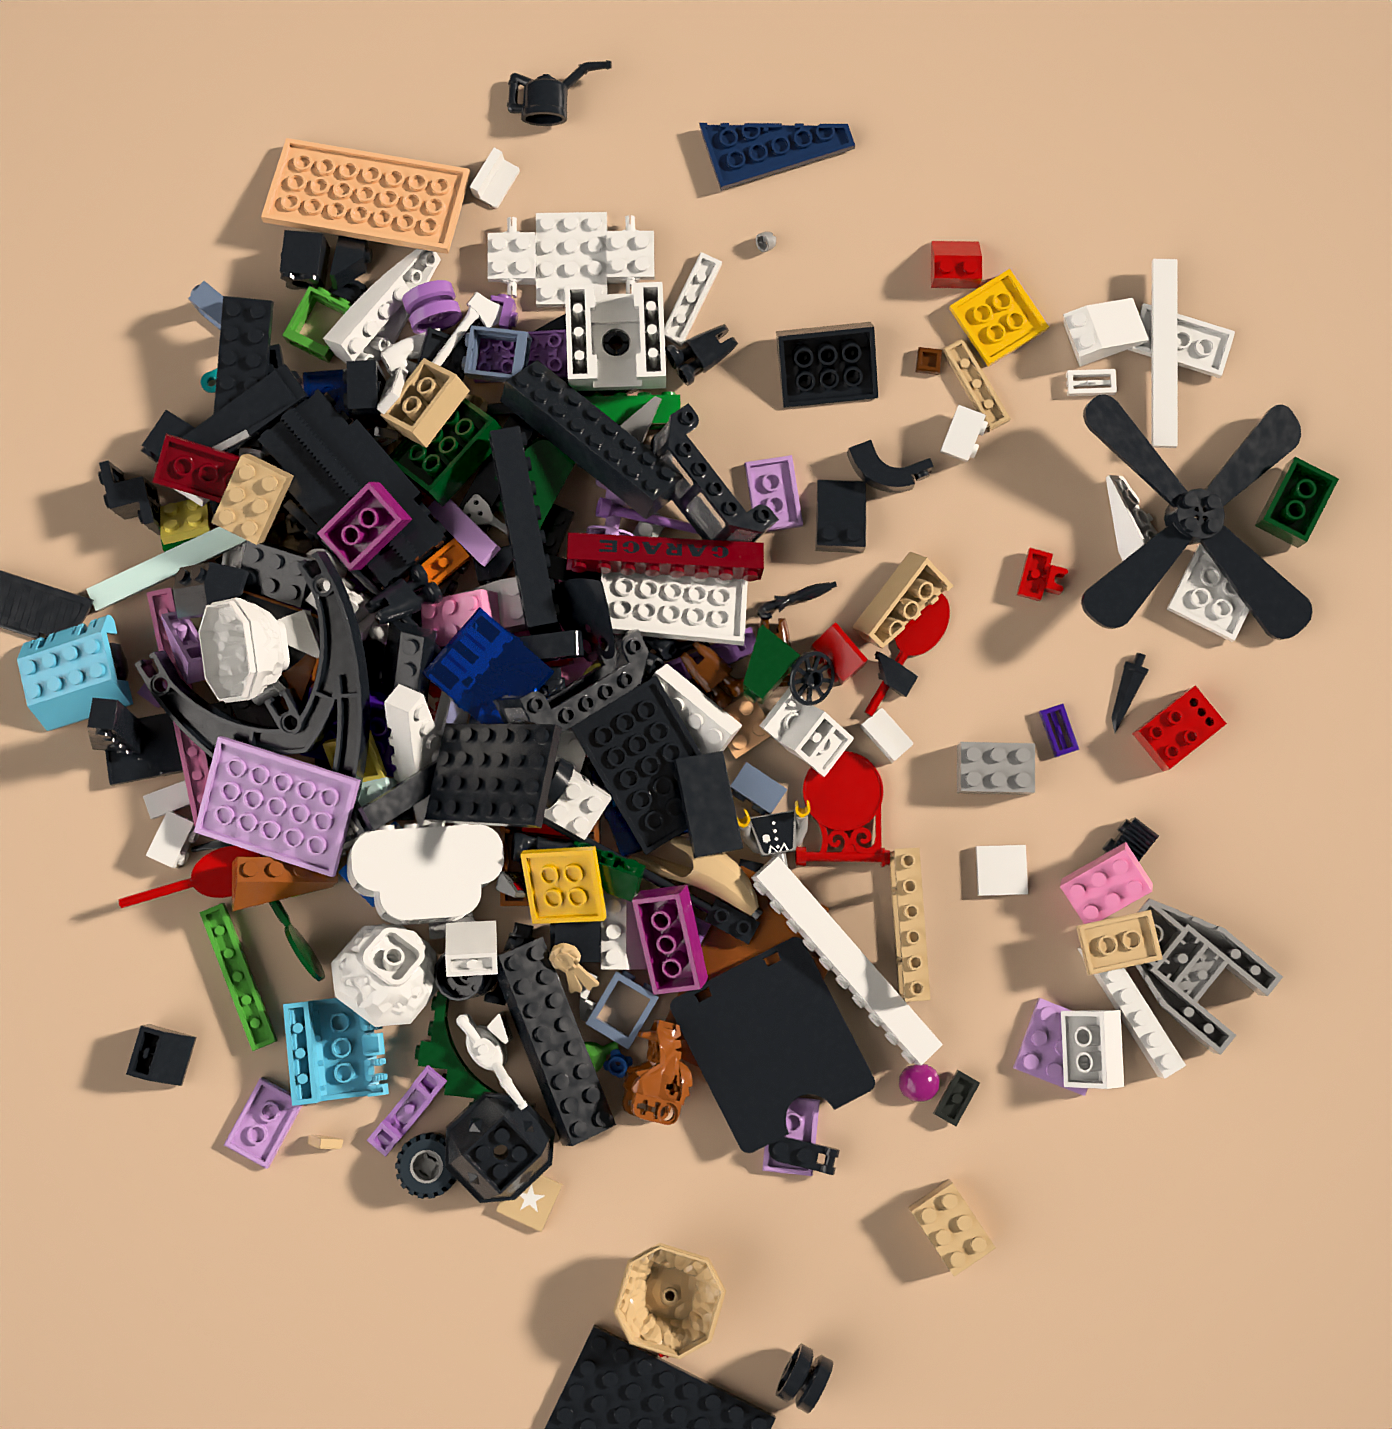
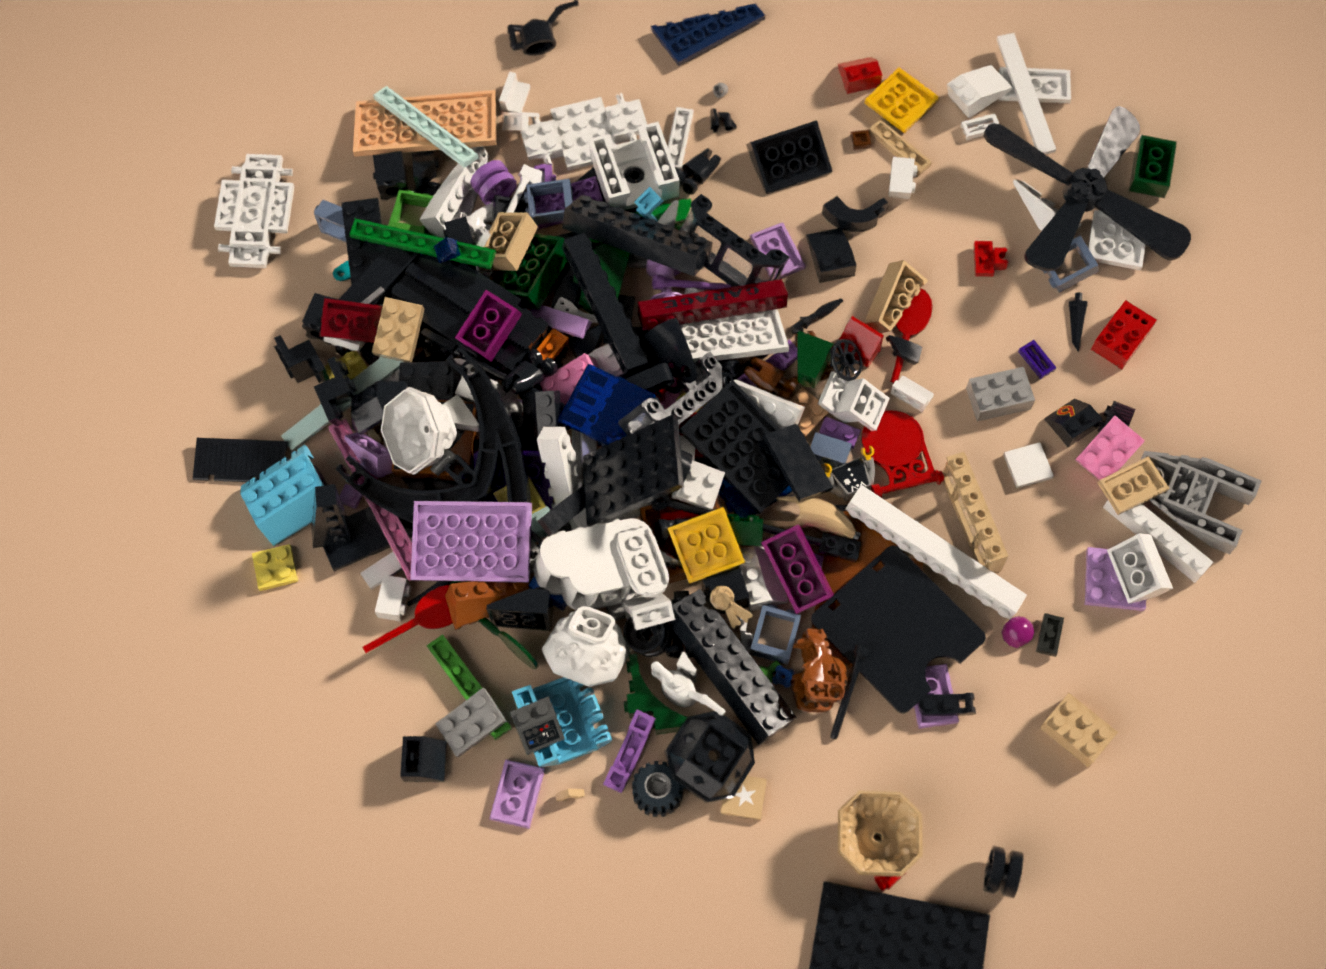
camera: 15 degrees left, 15 degrees down
(42, 760) = (274, 567): none -> light yellow plate
(121, 263) = (254, 209): none -> white piece
(166, 555) = (335, 391): none -> black bracket
(229, 1023) = (470, 722): none -> light grey plate
(300, 1059) = (537, 725): none -> dark grey slope
(311, 385) = (418, 242): none -> green tile
(334, 908) = (524, 610): none -> black slope
(337, 405) = (446, 249): none -> clear blue slope
(363, 204) = (426, 127): none -> light aqua tile
(478, 887) = (642, 560): none -> white tile
(486, 220) = (516, 120): none -> white panel
(616, 400) = (647, 203): none -> medium azure bracket
(715, 1068) = (860, 654): none -> black piece
(763, 293) = (725, 116): none -> black piece
(779, 764) = (839, 431): none -> medium lavender plate
(1076, 827) = (1074, 421): none -> black slope
(1169, 627) = (1090, 269): none -> sand blue window

